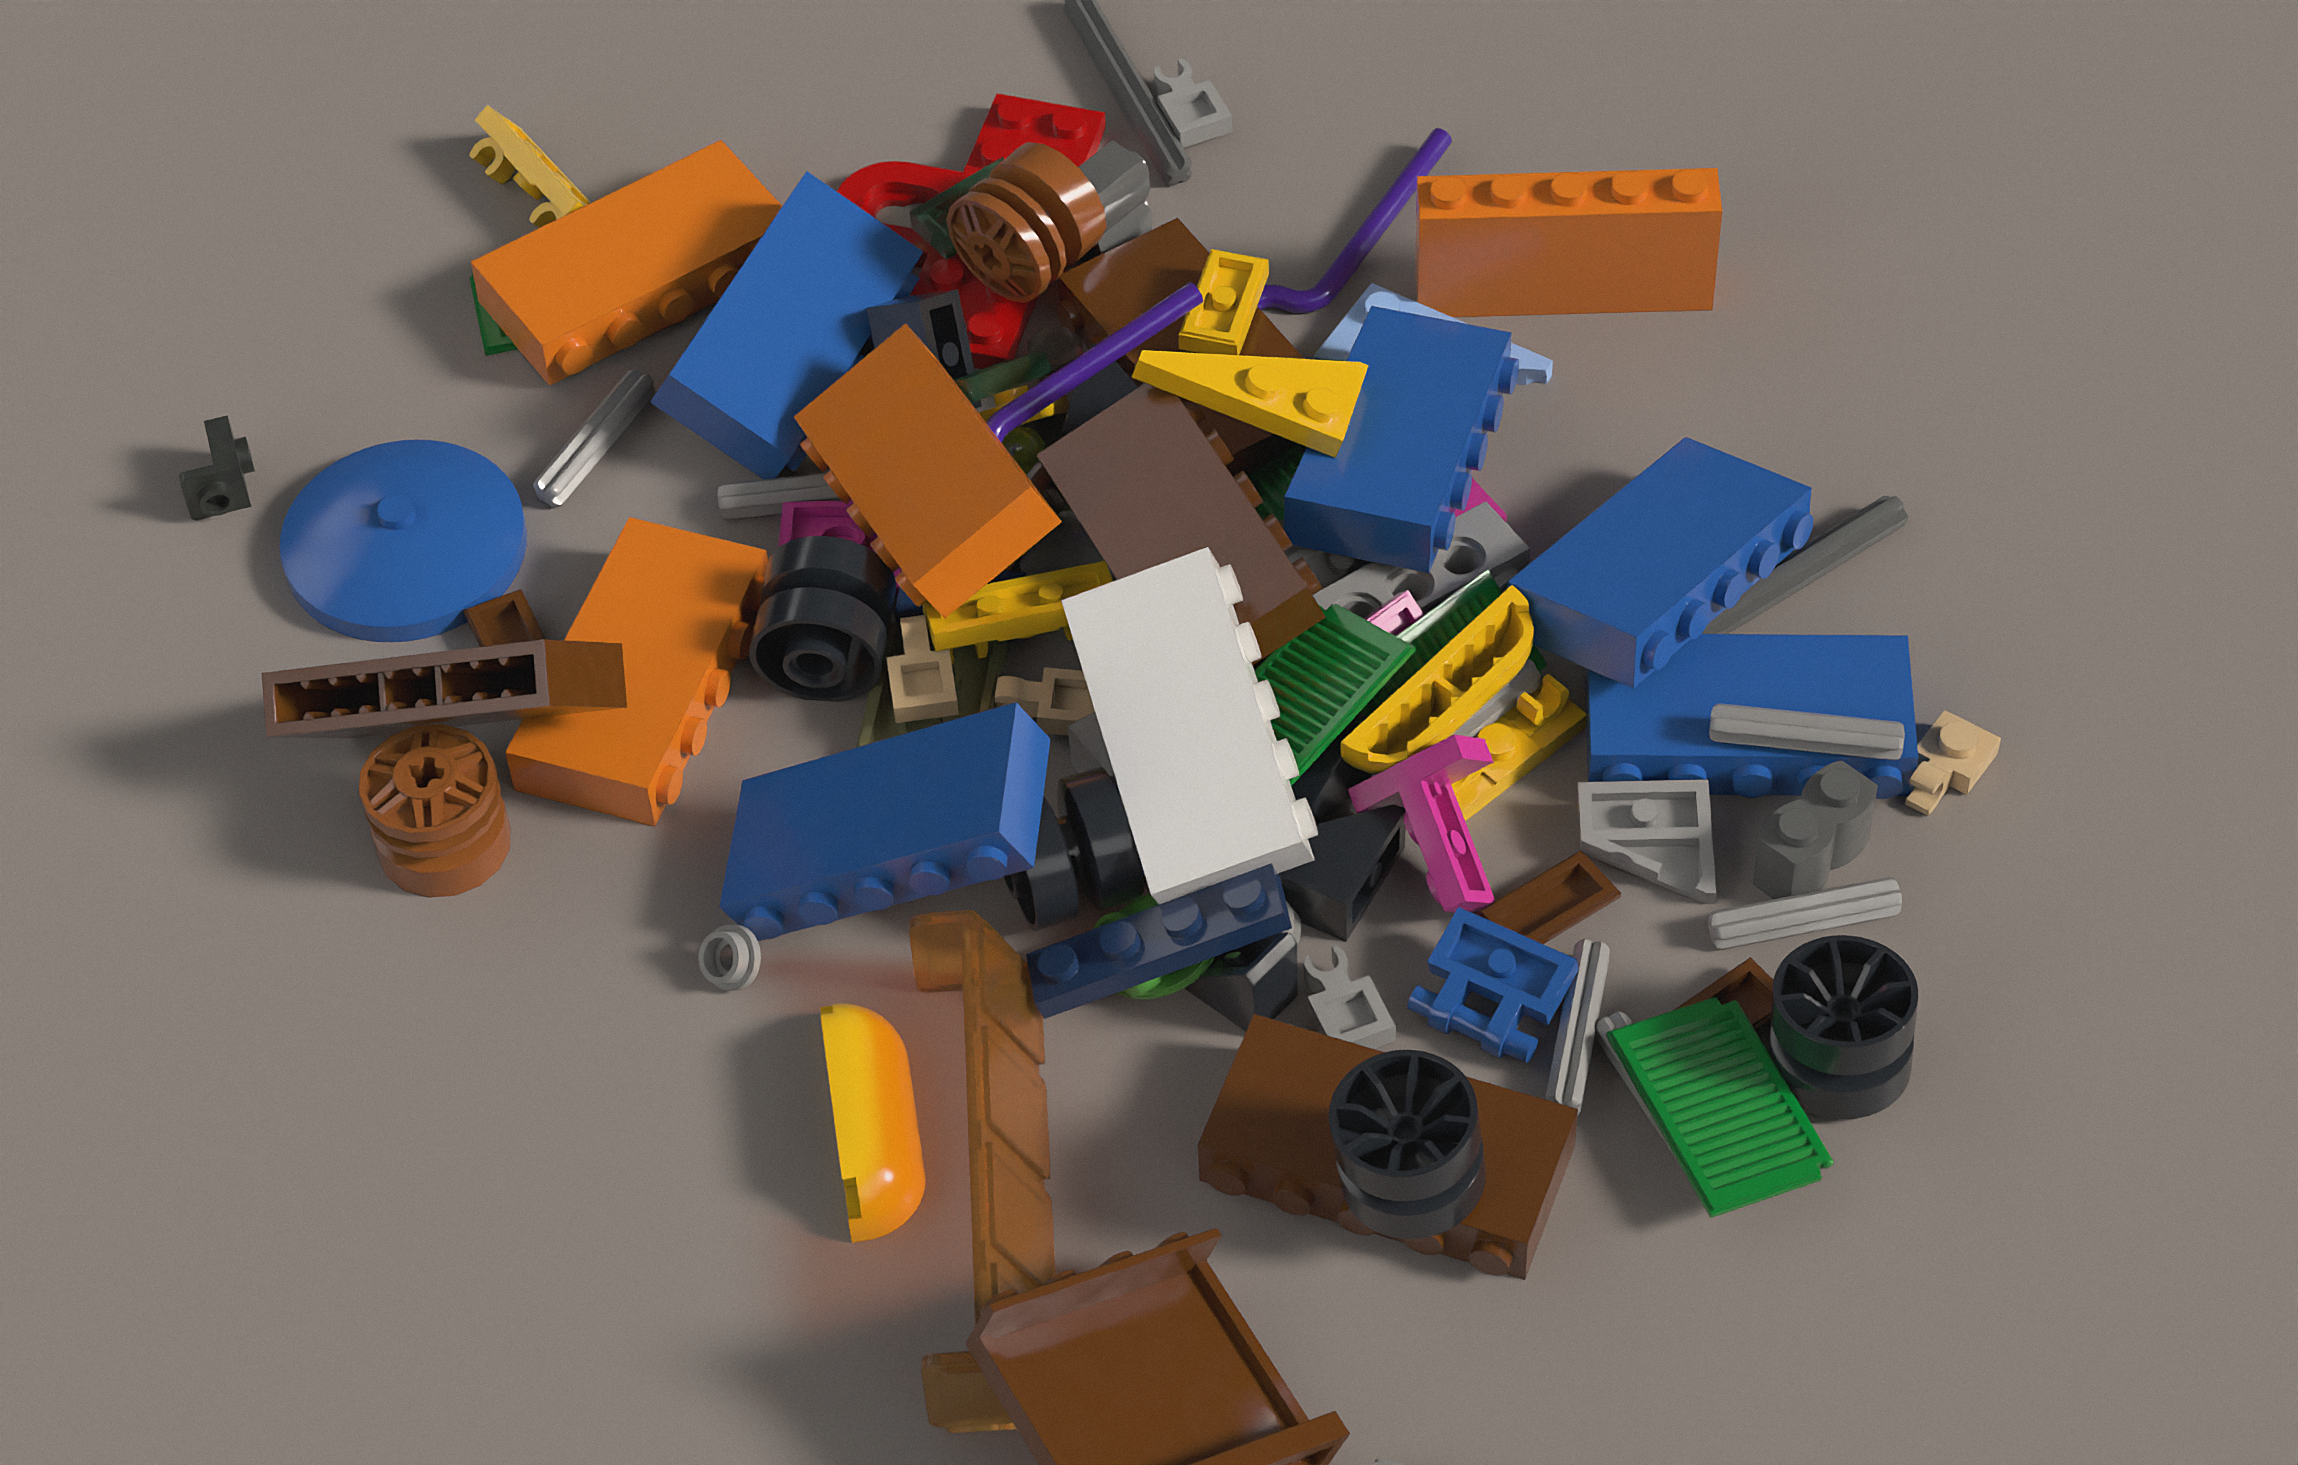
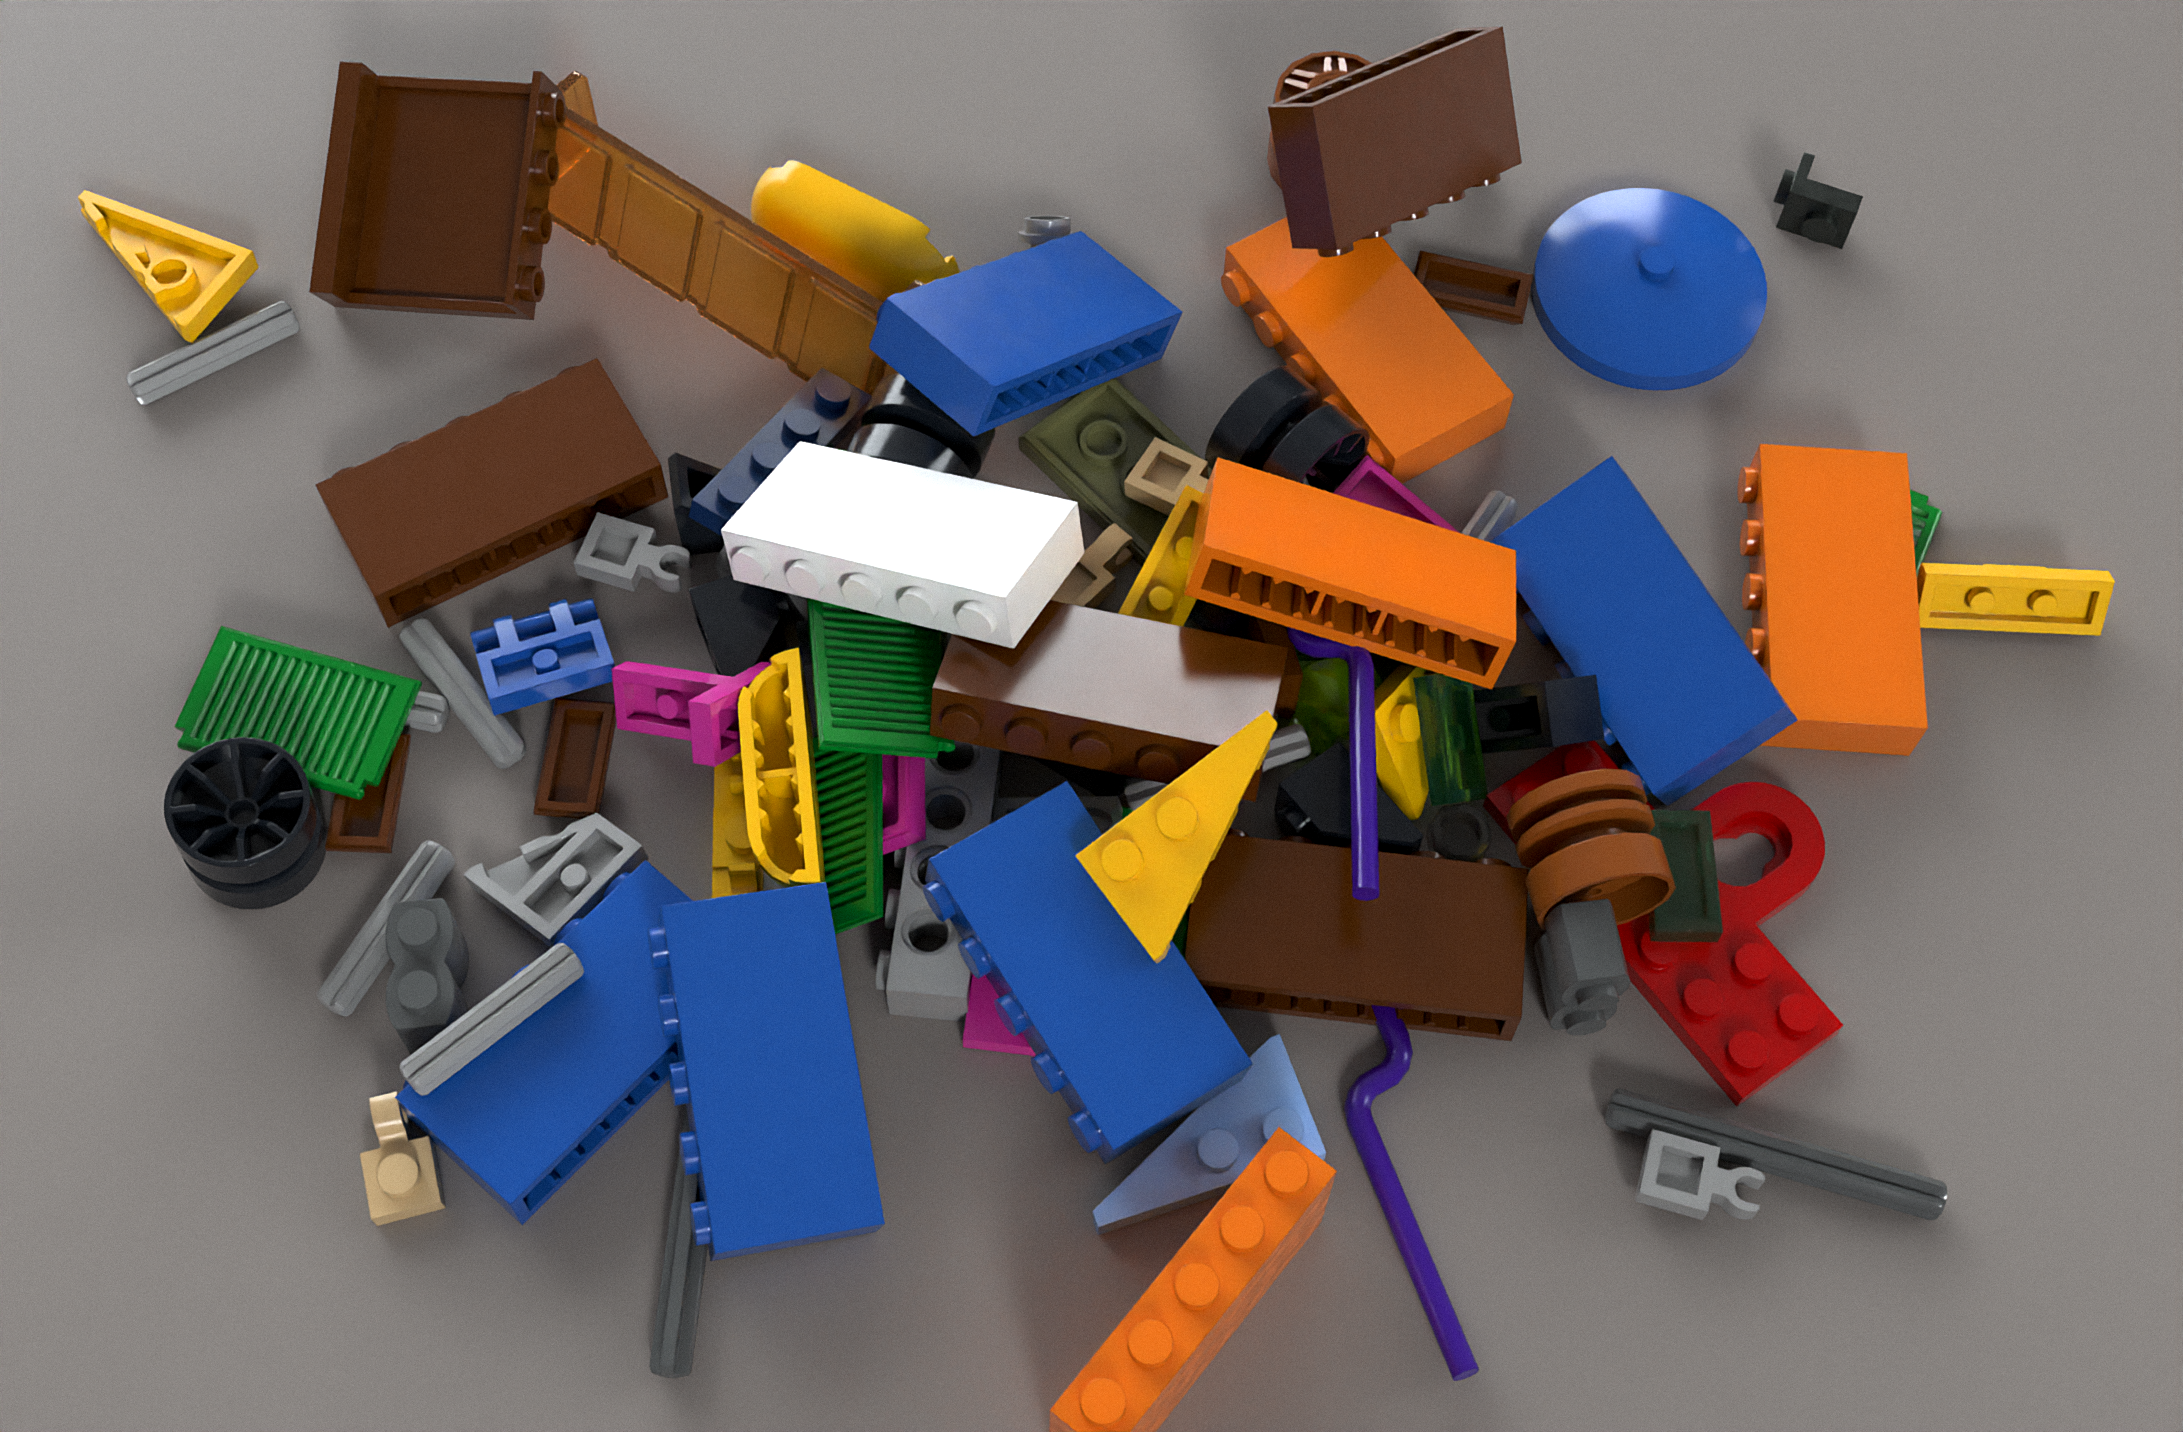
camera: 125 degrees right, 10 degrees up
(594, 438) = (1653, 464): light grey axle -> none
(1230, 294) = (1362, 950): yellow plate -> none
(1408, 1143) = (425, 420): black wheel -> none

